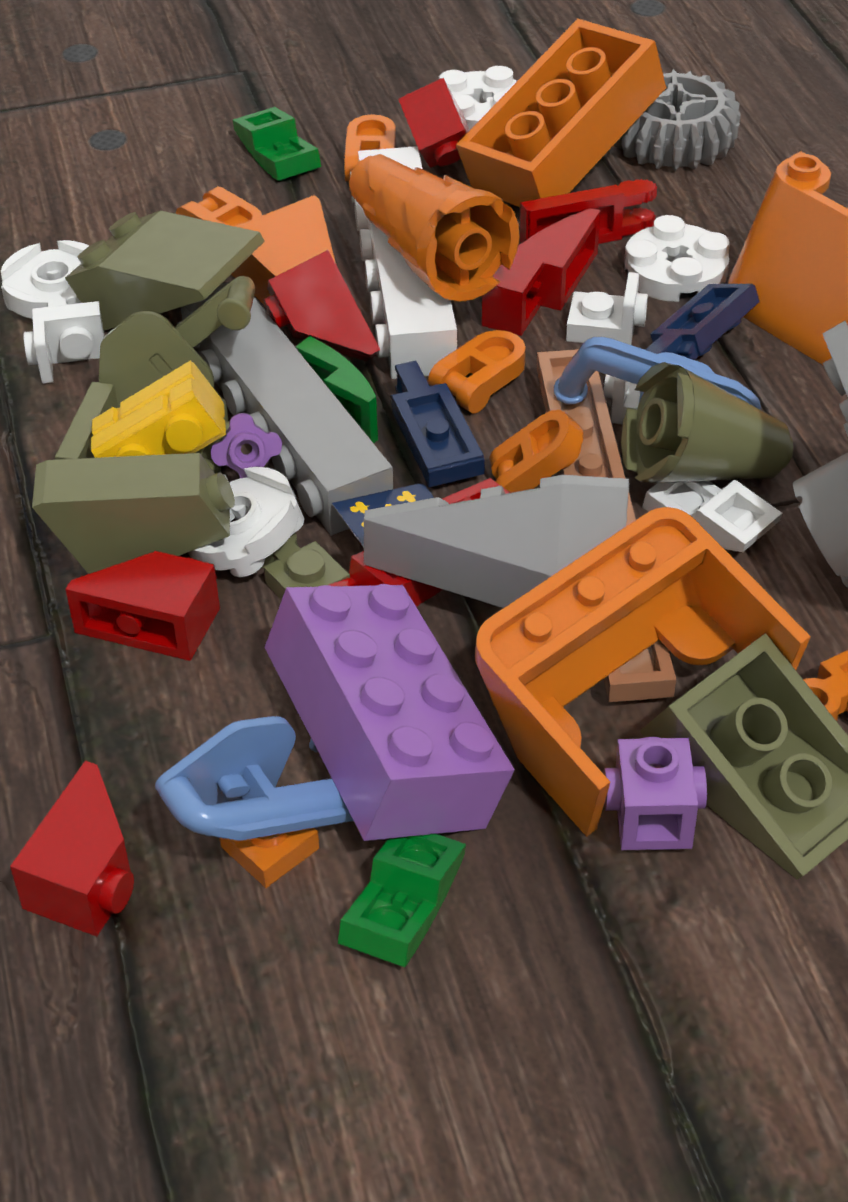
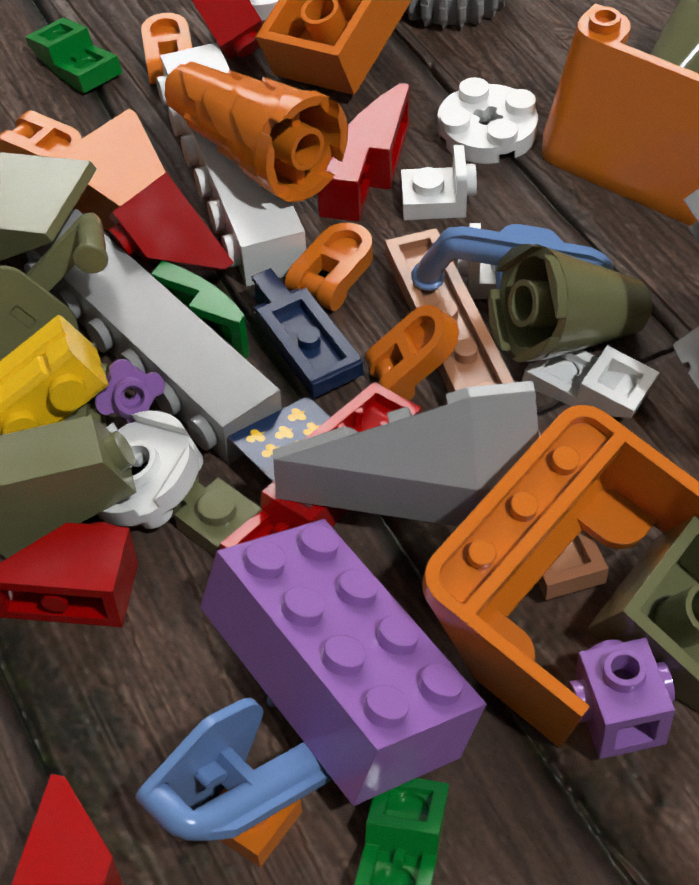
camera: 10 degrees left, 5 degrees up
(610, 200) = (419, 71): red hinge -> none
(704, 319) = (530, 183): dark blue hinge -> none

